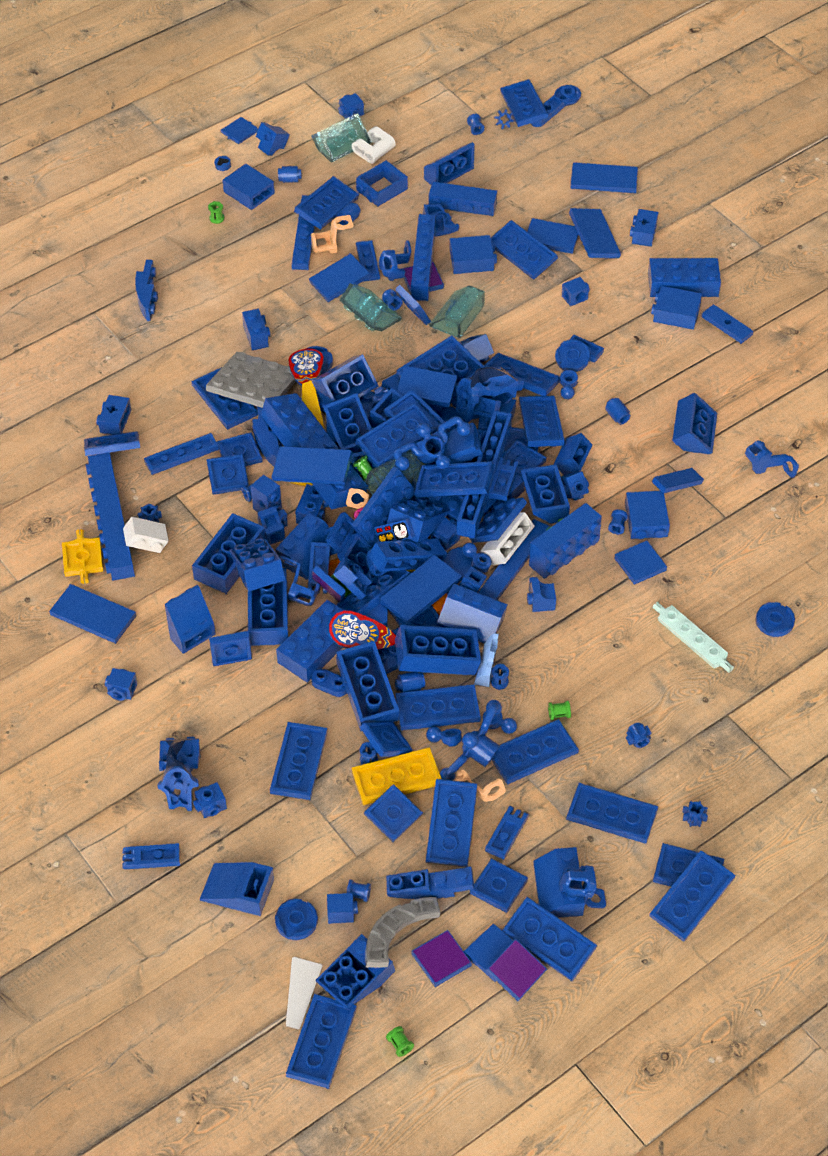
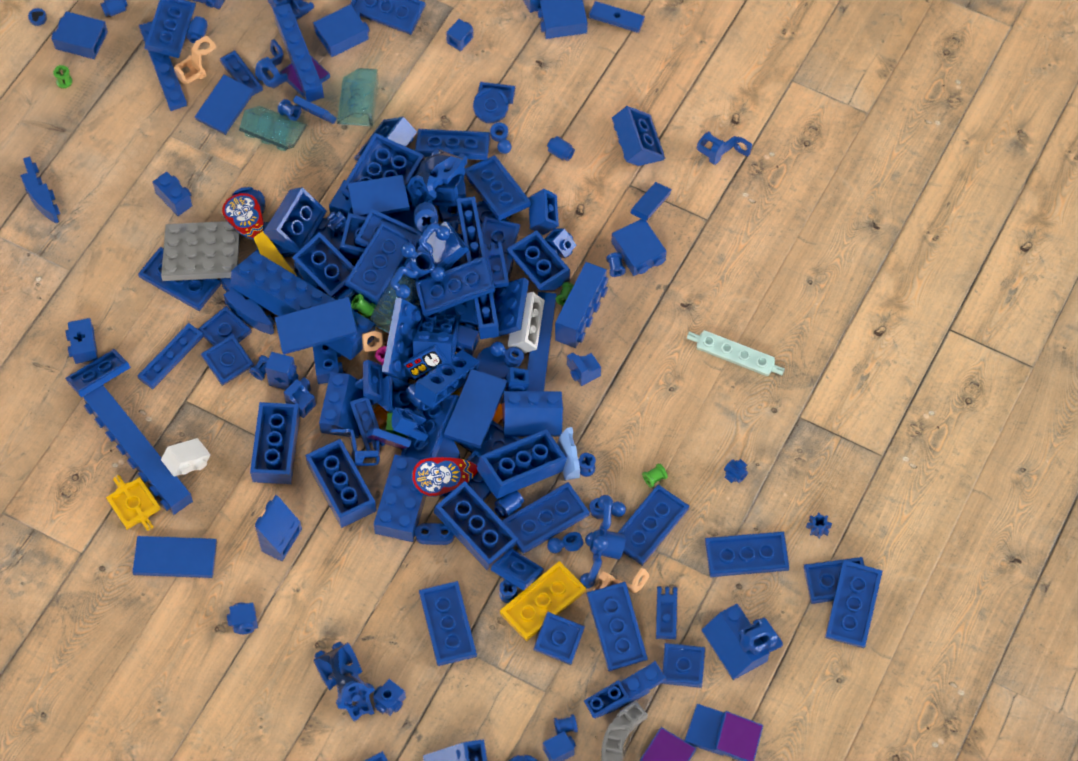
camera: 25 degrees left, 10 degrees up
(150, 513) = (175, 428): blue gear -> none
(230, 648) = (329, 540): blue tile -> none
(257, 564) = (314, 447): blue slope -> none
(455, 410) = (424, 210): none -> blue piece
(550, 939) = (752, 696): blue tile -> none
(640, 562) = (654, 297): blue tile -> none
(775, 619) = (798, 306): blue tile -> none

